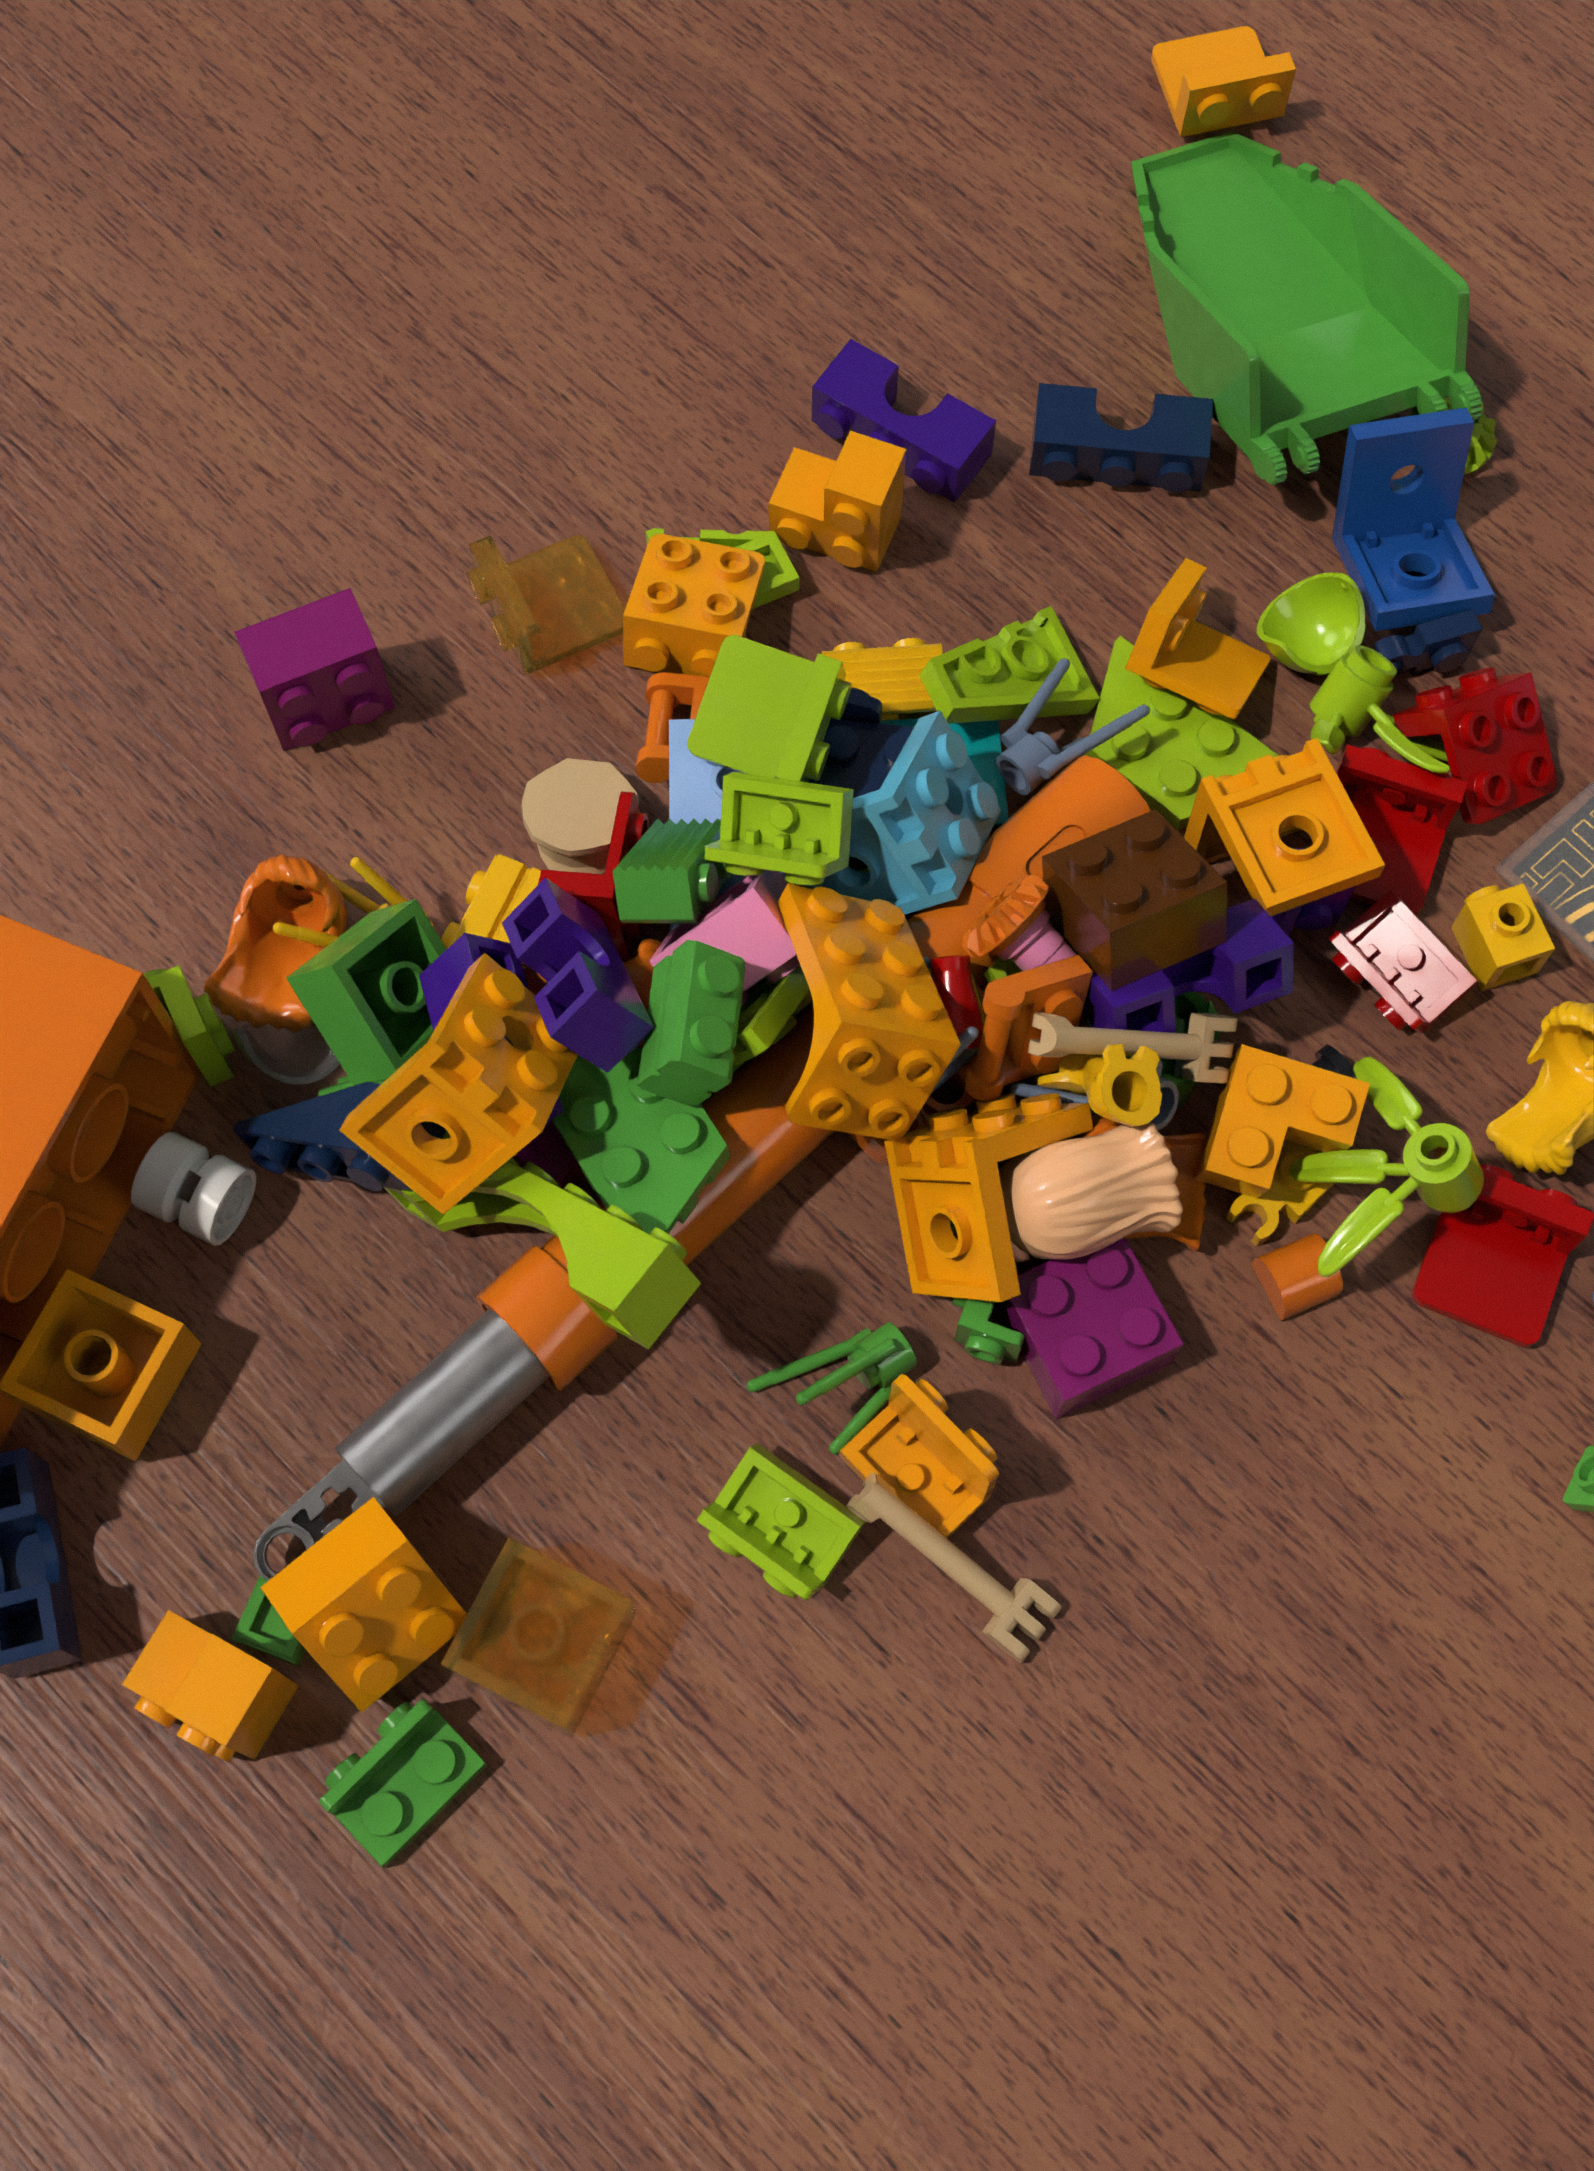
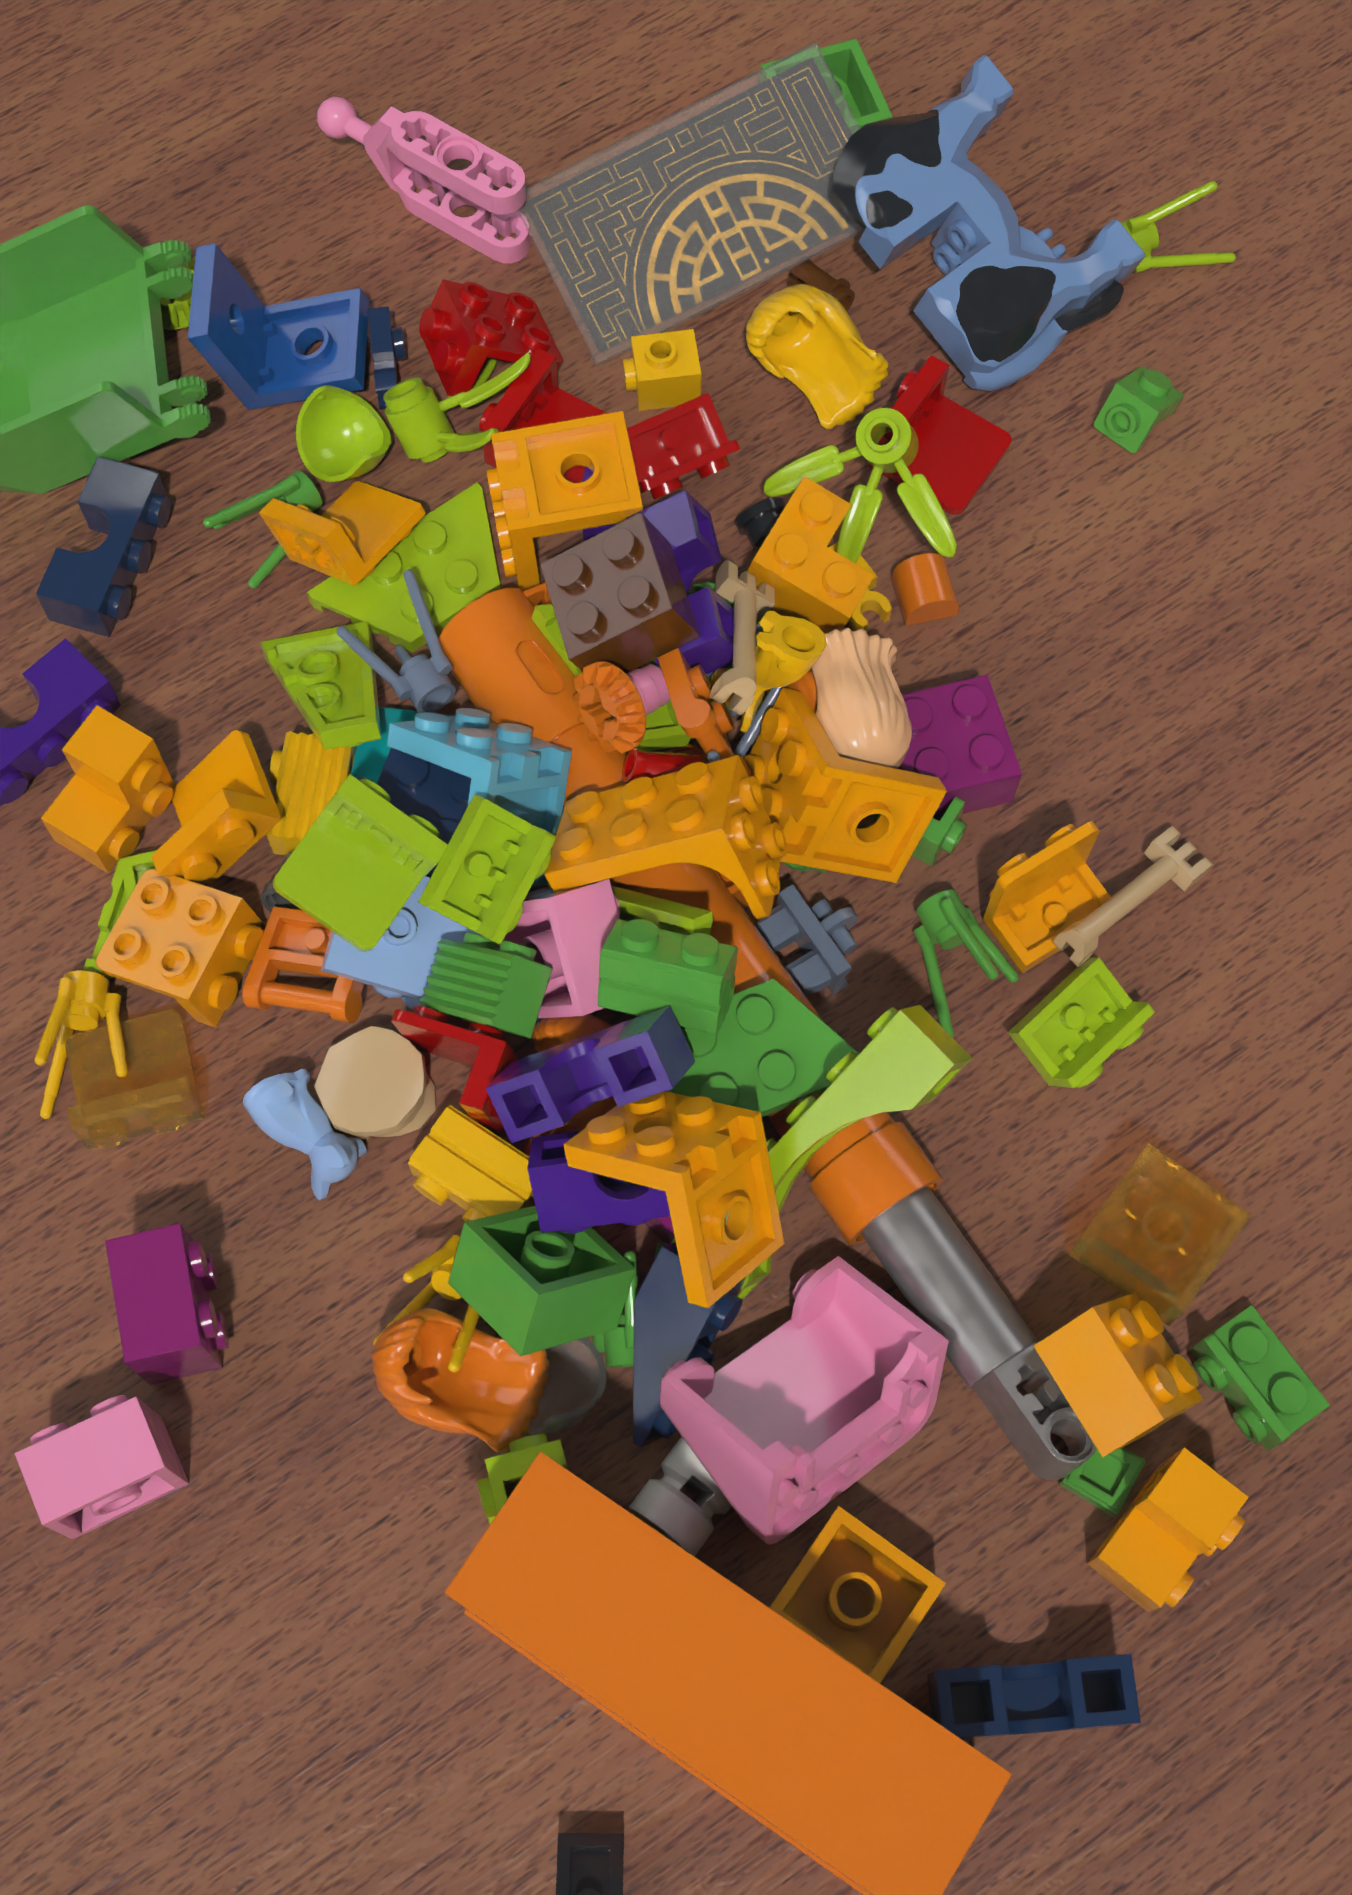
camera: 80 degrees left, 0 degrees up
(155, 652) = (100, 1466): none -> bright pink brick
(292, 1278) = (810, 1400): none -> bright pink windscreen
(529, 747) = (293, 1118): none -> light blue animal
(617, 537) = (79, 1006): none -> yellow plant
(832, 611) = (221, 813): none -> light orange bracket
(842, 1193) = (822, 960): none -> sand blue hips
(1227, 594) = (292, 490): none -> bright green plant

